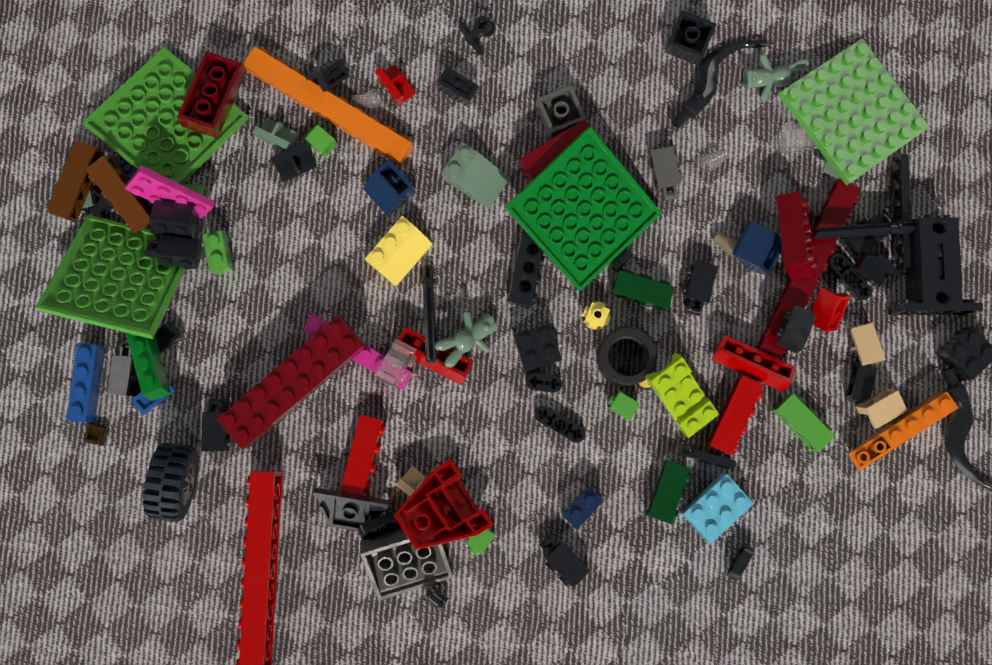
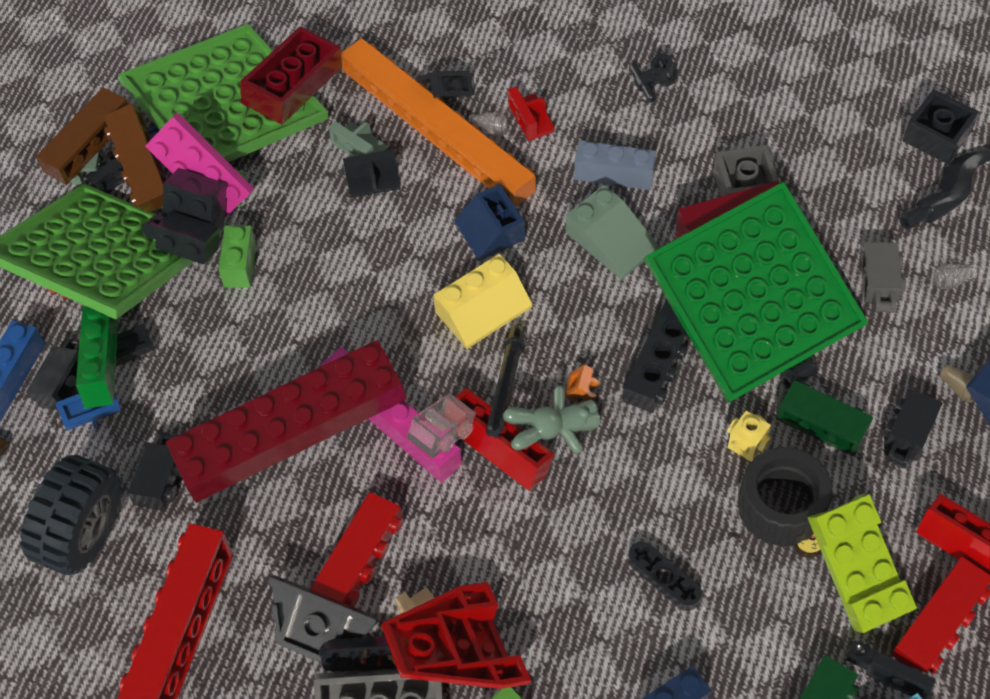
camera: 15 degrees right, 25 degrees down
(321, 141) = (415, 156): bright green brick -> none
(457, 86) = (610, 125): black panel -> none
(465, 118) = (614, 165): none -> sand blue brick
(477, 300) = (579, 384): none -> orange tile
(537, 348) = (652, 461): black brick -> none
(542, 387) = (652, 513): black beam -> none
(623, 405) = (767, 567): bright green brick -> none

